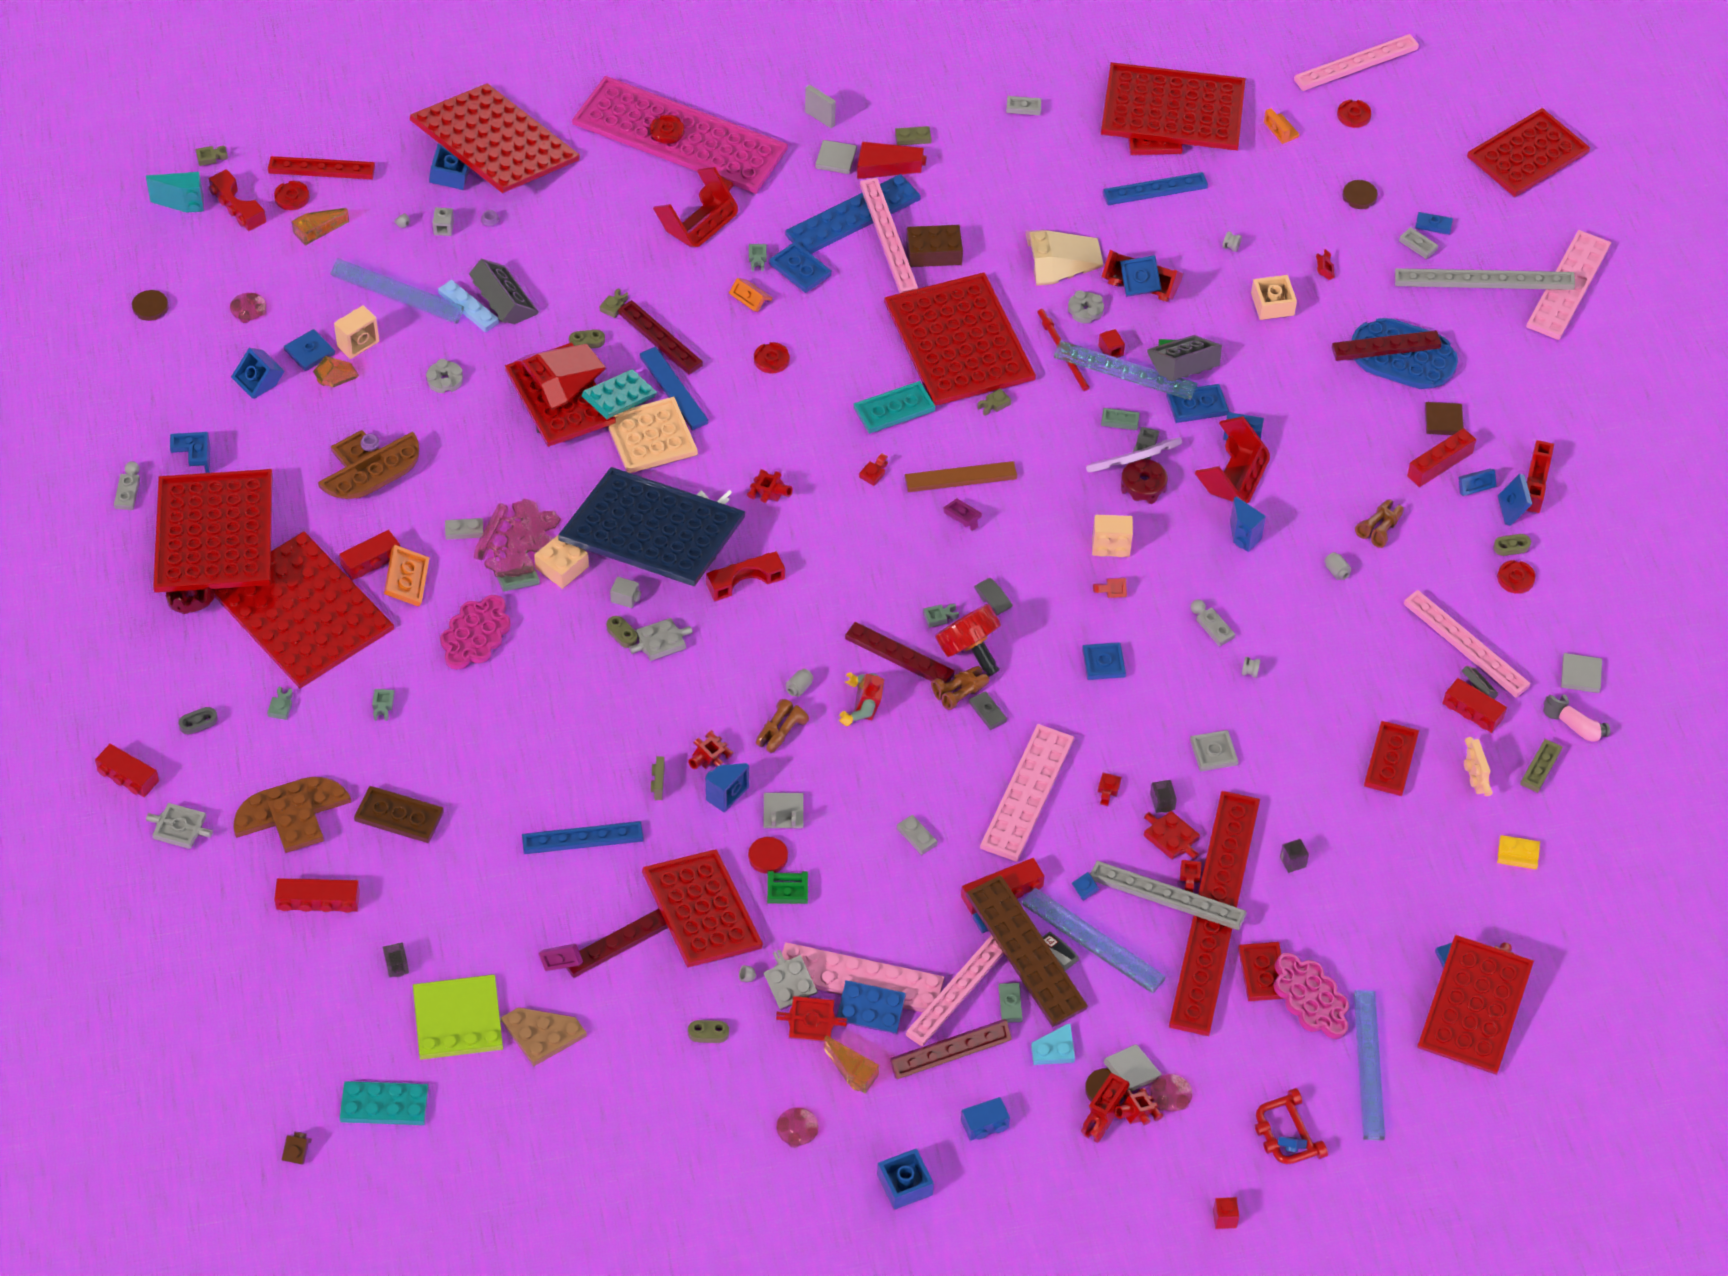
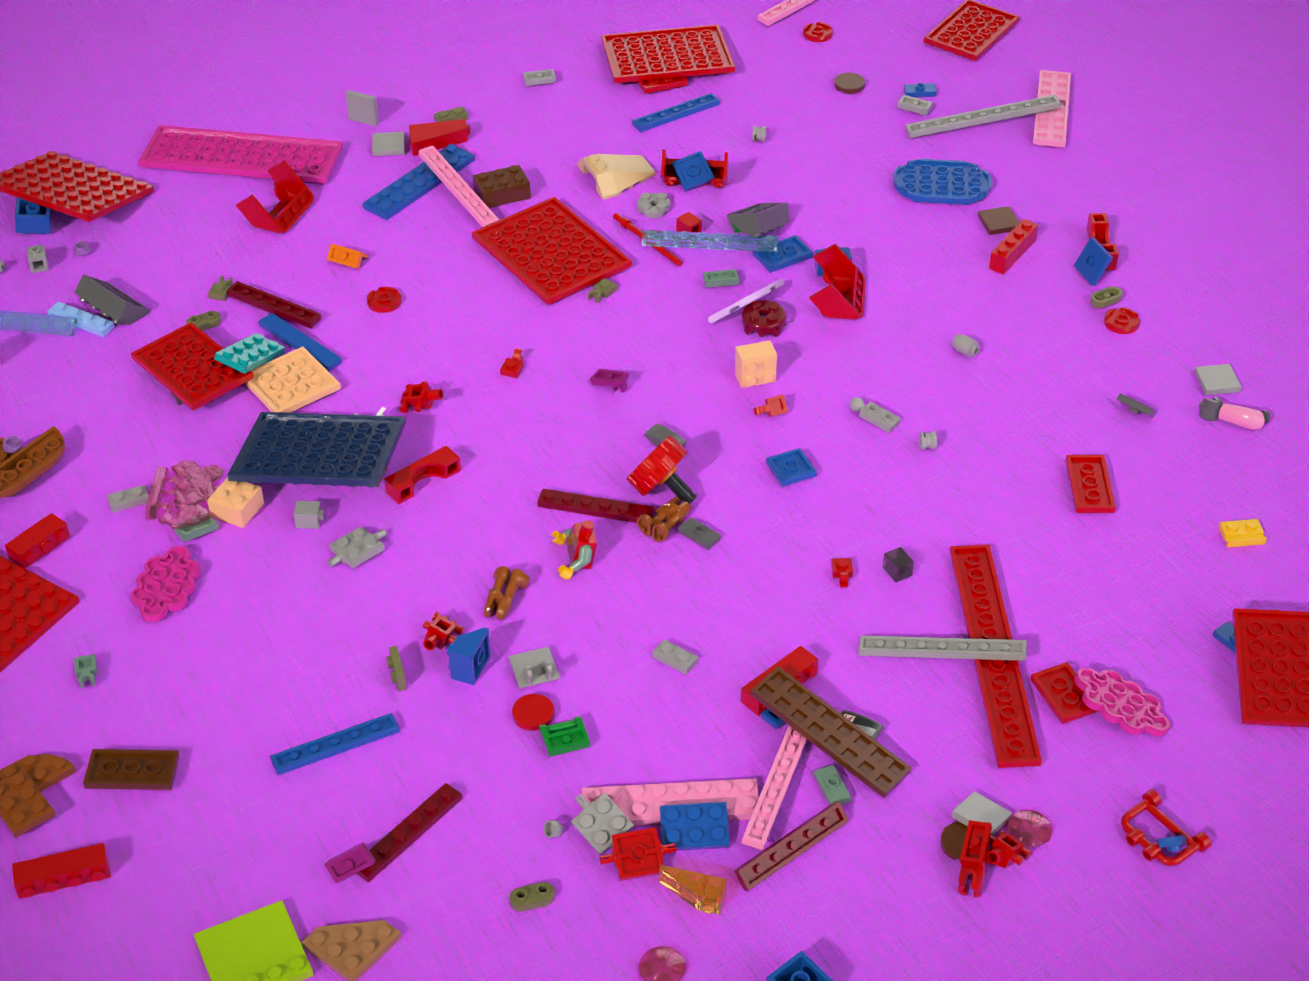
camera: 15 degrees left, 10 degrees down
(395, 960) = (167, 913): clear smoke brick -> none
(406, 575) = (80, 549): orange plate -> none
(442, 368) = (80, 378): light grey plate -> none
(561, 372) = (188, 344): wedge -> none
(621, 629) = (315, 550): olive plate -> none
(667, 129) = (228, 150): red tile -> none
(702, 908) = (484, 777): red plate -> none
(757, 255) = (343, 226): sand green plate -> none
(799, 682) = (508, 551): light grey brick -> none
(800, 267) = (386, 227): blue plate -> none
(894, 407) = (512, 312): teal plate -> none
(938, 615) = (618, 465): sand green plate -> none
(960, 476) = (595, 352): dark orange tile -> none
(985, 1119) = (856, 904): blue brick -> none
(1027, 793) = (767, 594): bright pink plate -> none
(1054, 1047) = (894, 817): medium azure wing -> none
(1085, 886) = (859, 660): blue plate -> none
(1094, 940) = (891, 707): clear light blue plate -> none
(1146, 438) = (750, 287): dark grey slope -> none
(1171, 835) = (920, 596): red plate -> none
(1190, 872) = (954, 624): red plate -> none
(1213, 750) = (925, 516): light grey tile -> none
(1226, 1213) = (1141, 928): red brick -> none
(1246, 524) = (870, 329): blue slope -> none
(1273, 297) = (814, 163): light nougat brick -> none
(1280, 126) = (760, 51): orange panel -> none
(1294, 855) = (1044, 584): clear smoke brick -> none
(1325, 267) = (845, 135): red plate -> none
(1369, 1065) = (1206, 753): clear light blue plate -> none
(1386, 345) = (925, 177): dark red plate -> none
(1389, 519) = (991, 301): dark orange piece -> none
(1467, 643) = (1108, 379): bright pink plate -> none
(1474, 705) = (1141, 424): red brick -> none
(1477, 481) = (1052, 257): blue plate -> none
(1477, 767) = (1173, 469): light nougat plate -> none
(1541, 765) = (1224, 458): olive plate -> none

